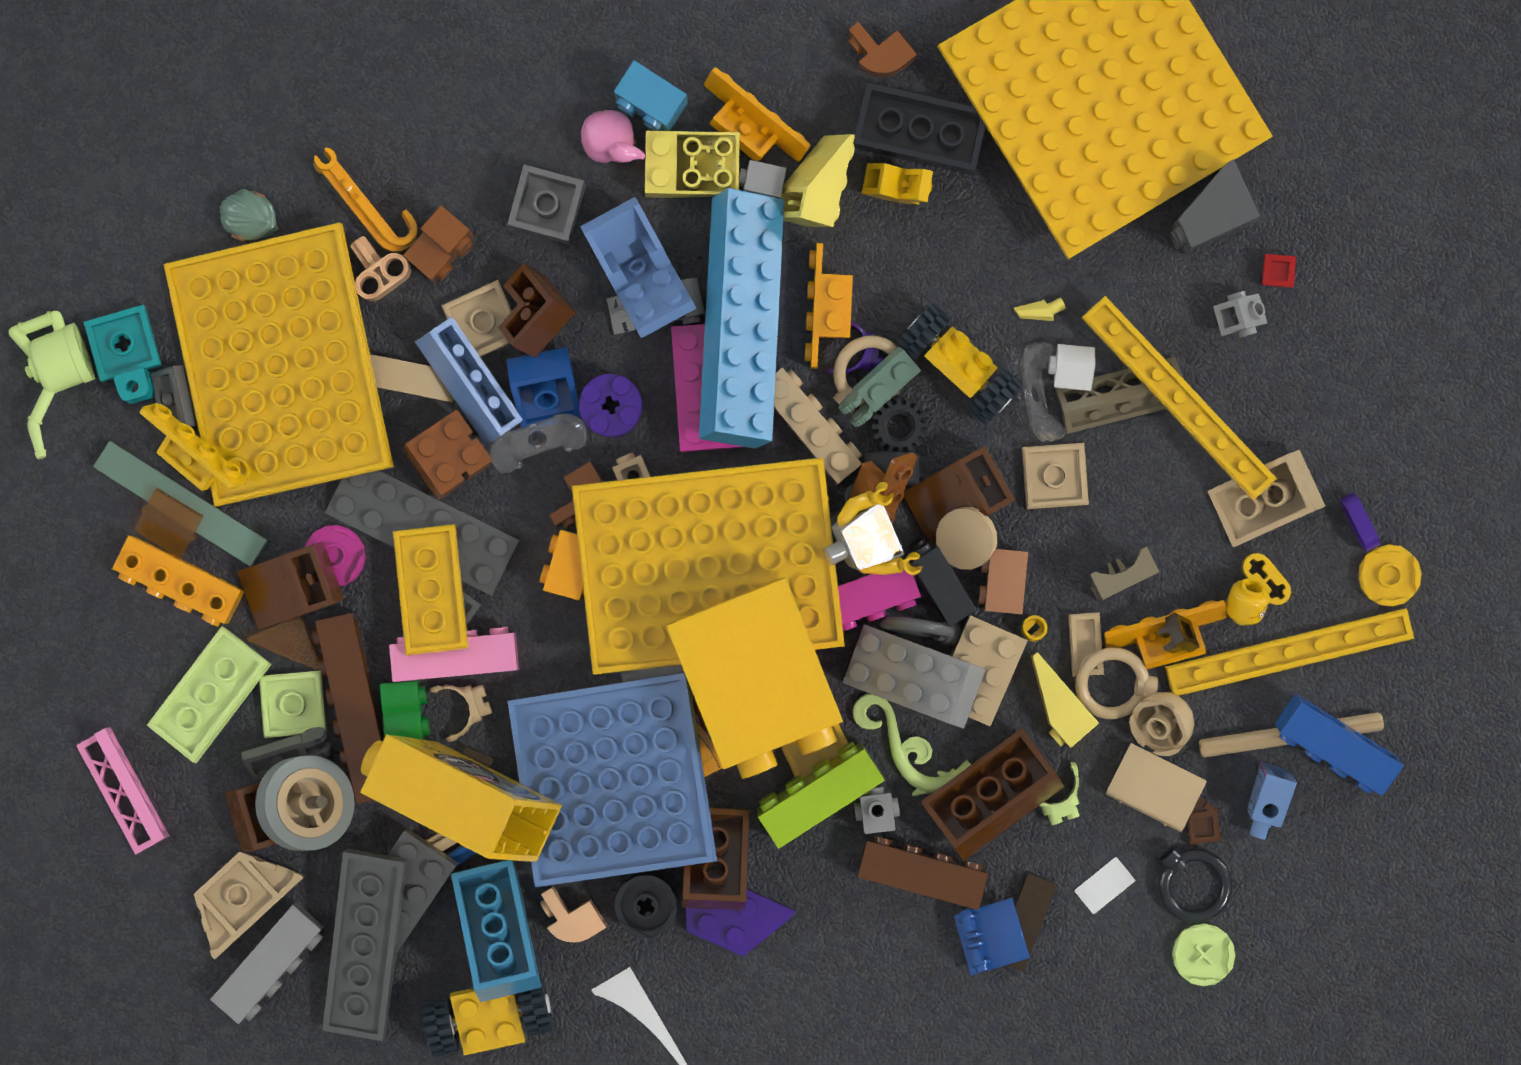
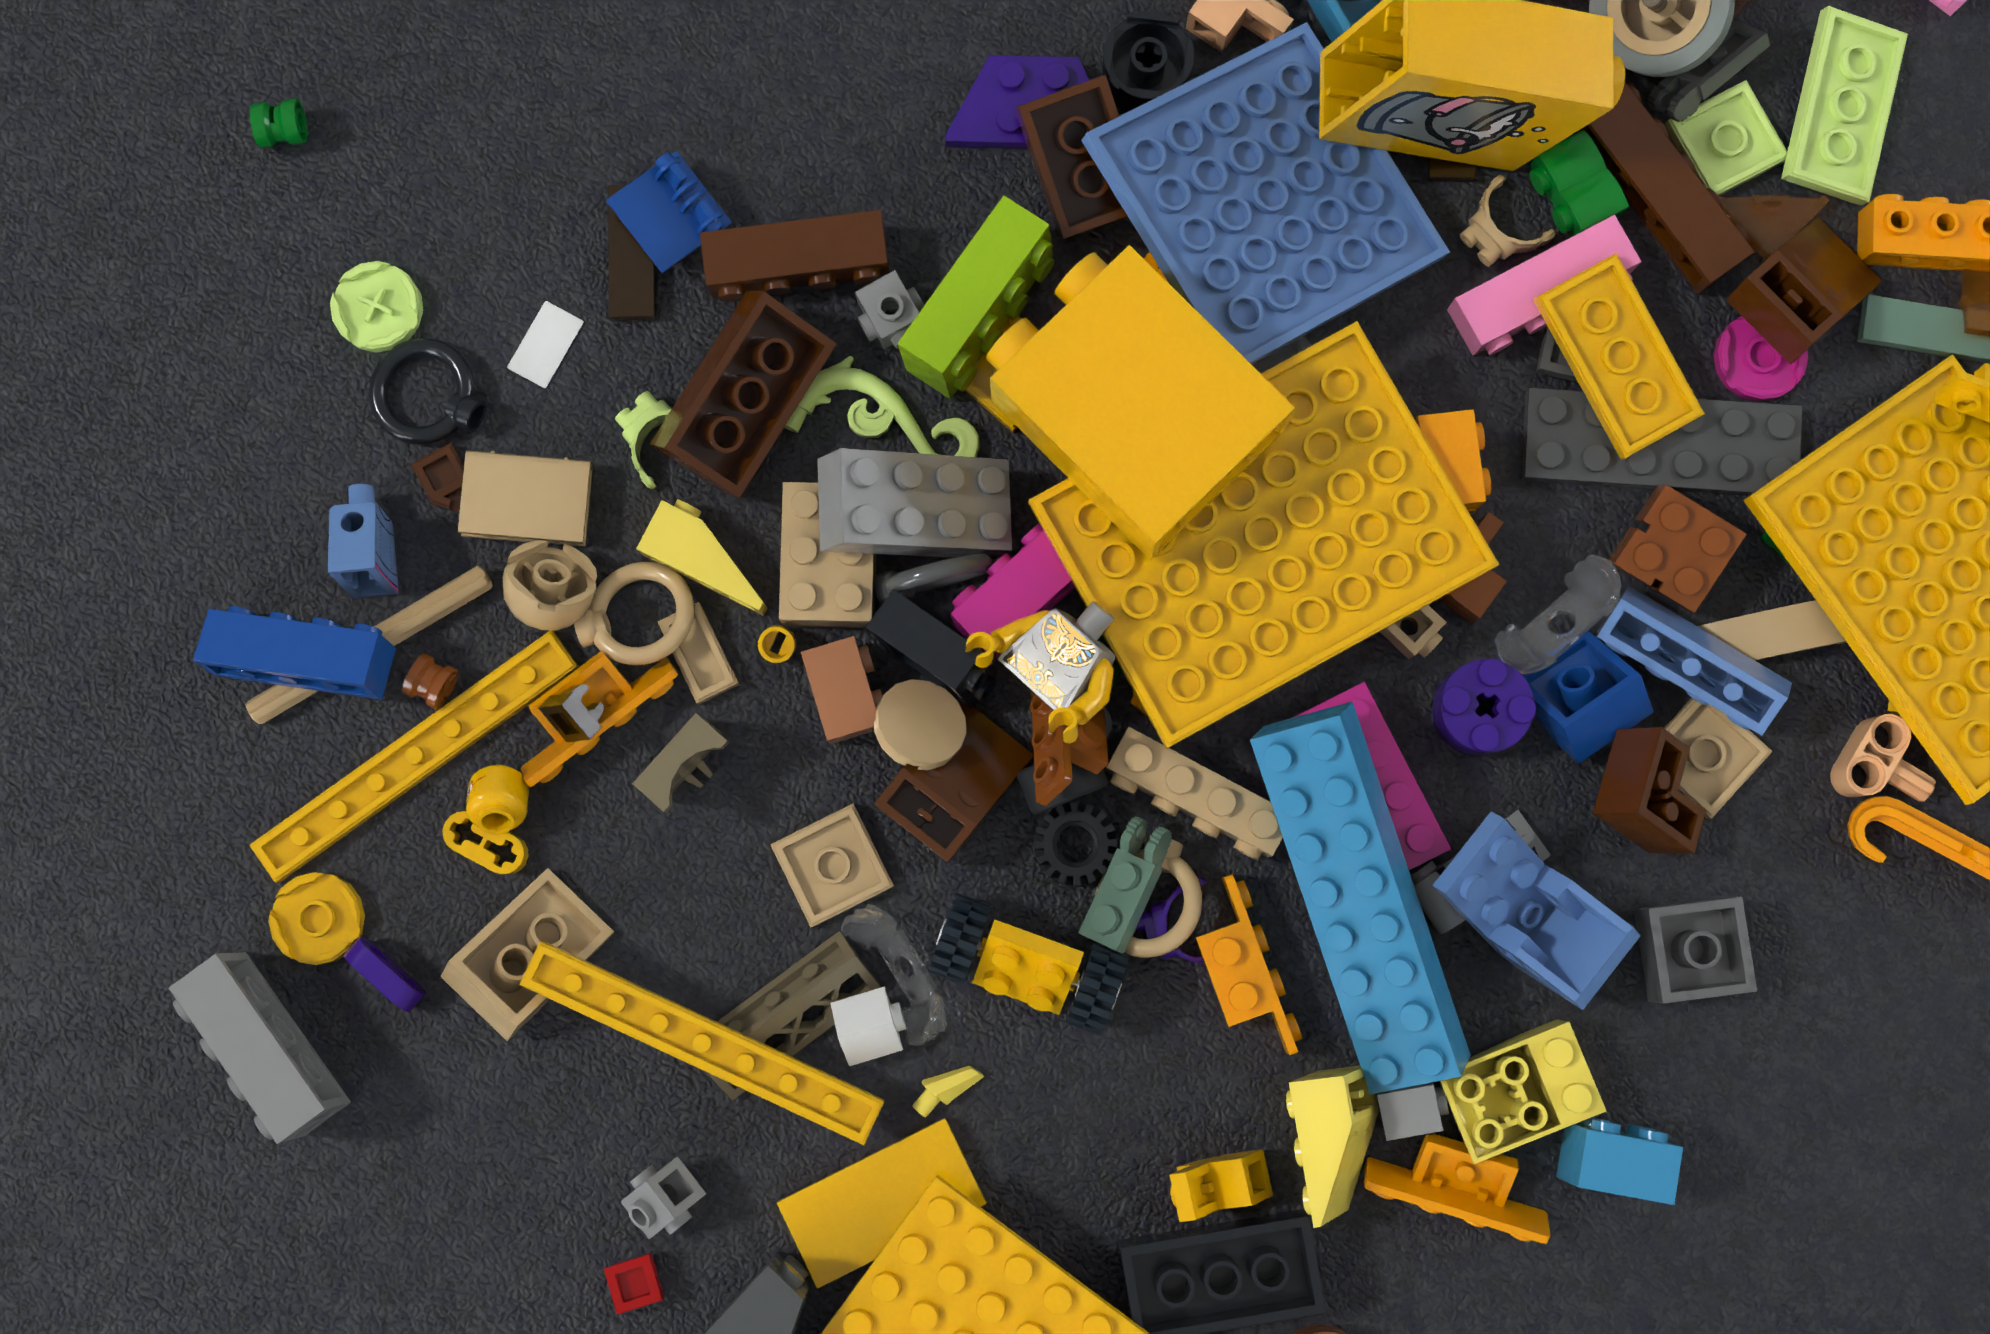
camera: 160 degrees right, 5 degrees down
(439, 245) = (1816, 833): dark orange brick -> none
(609, 137) = (1648, 1081): bright pink hair -> none
(1125, 259) = (858, 1209): none -> yellow tile
(1261, 694) = (430, 681): none -> dark orange wheel
(1452, 507) = (258, 1046): none -> light grey brick

